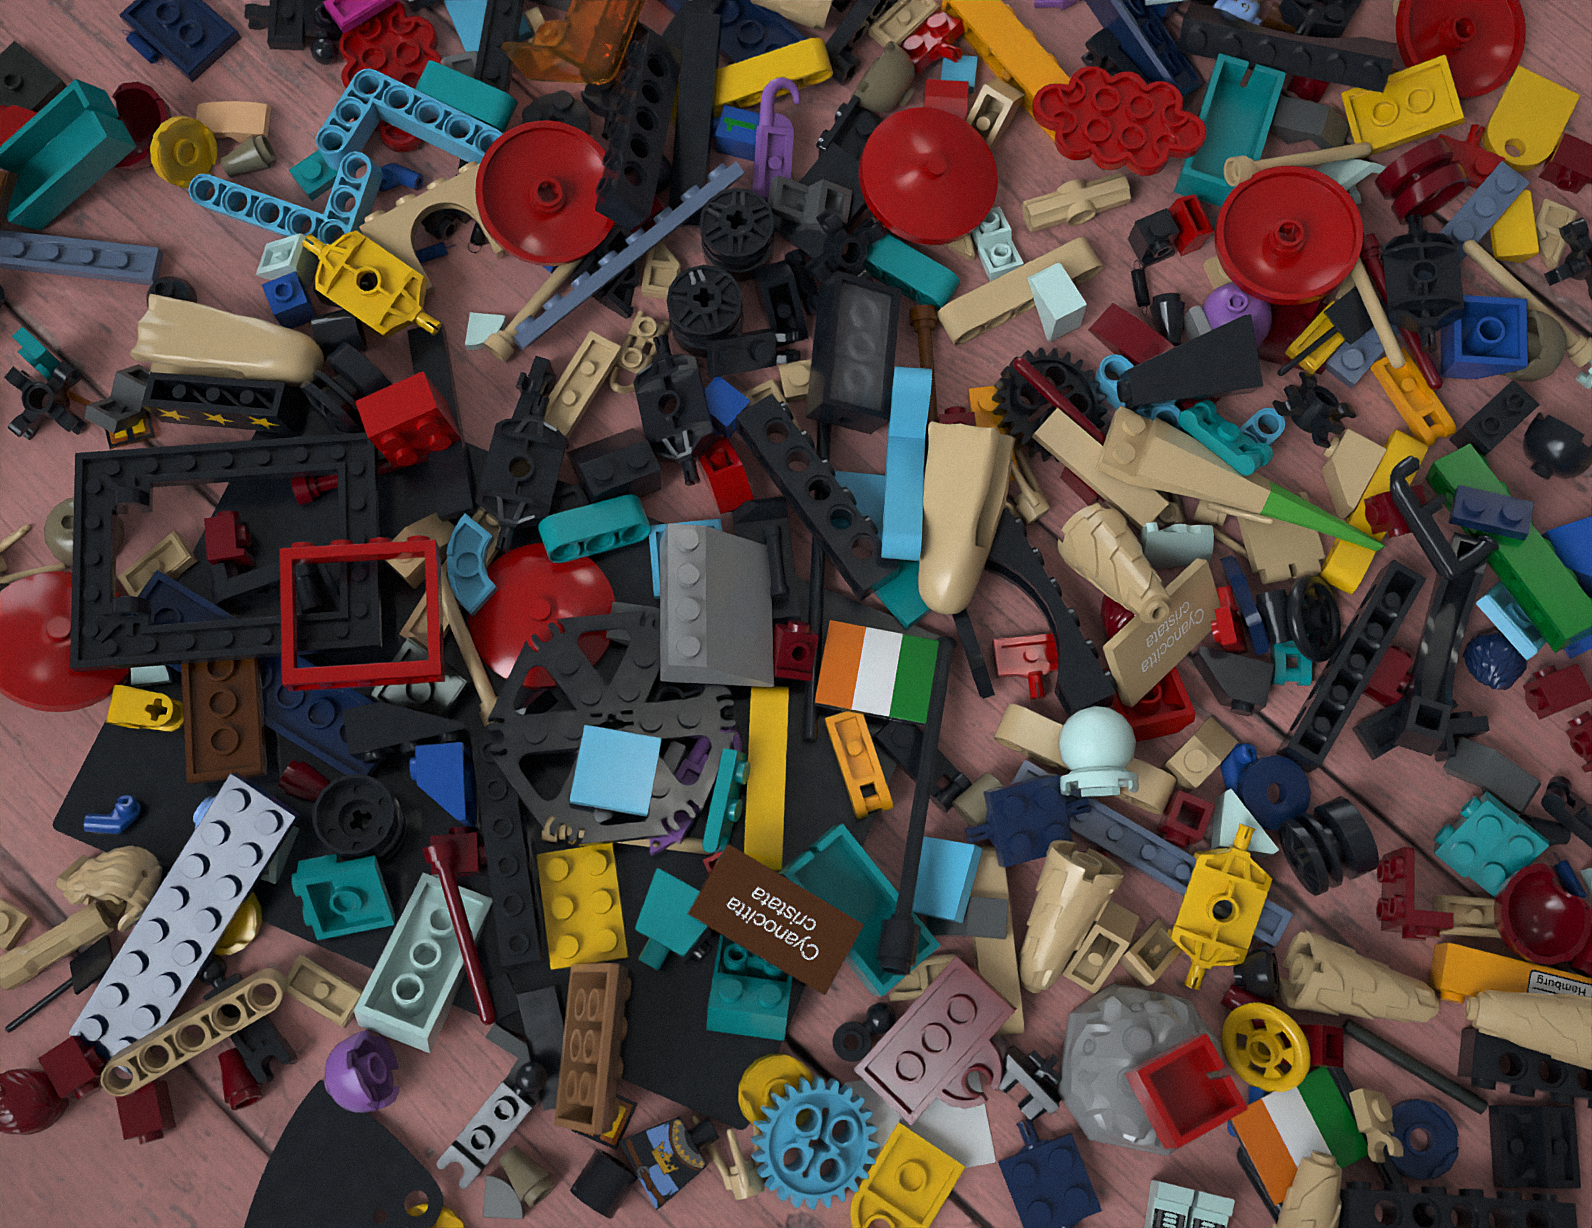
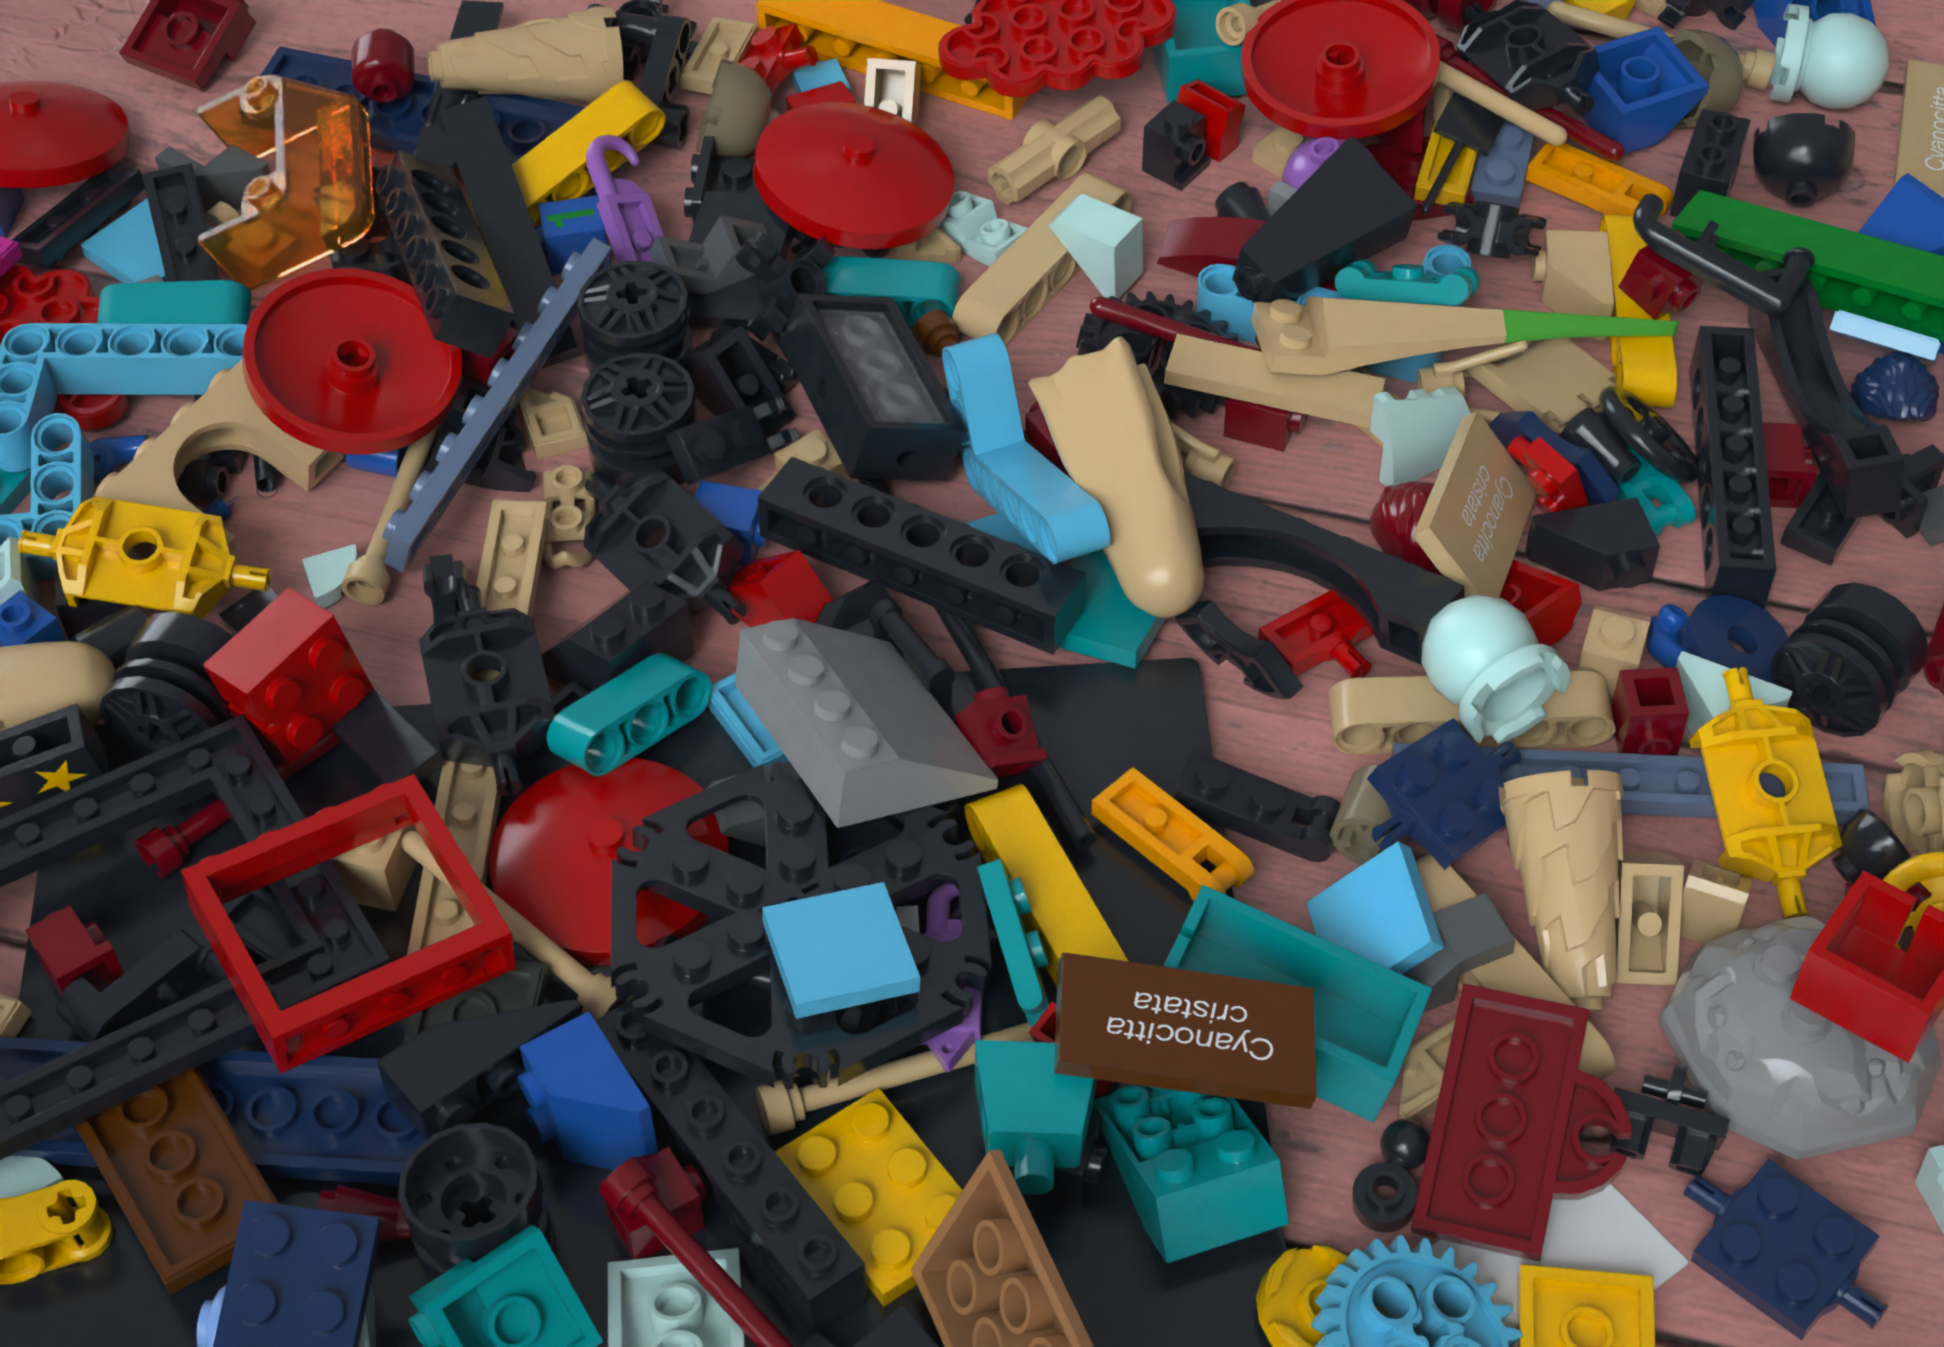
camera: 25 degrees left, 25 degrees down
(467, 564) = (485, 841): medium azure tile -> none
(902, 682) = (1187, 713): flag -> none
(1111, 558) = (1353, 460): tan cone -> none
(1140, 287) = (1188, 202): black piece -> none
(1491, 512) = (1772, 232): dark blue plate -> none

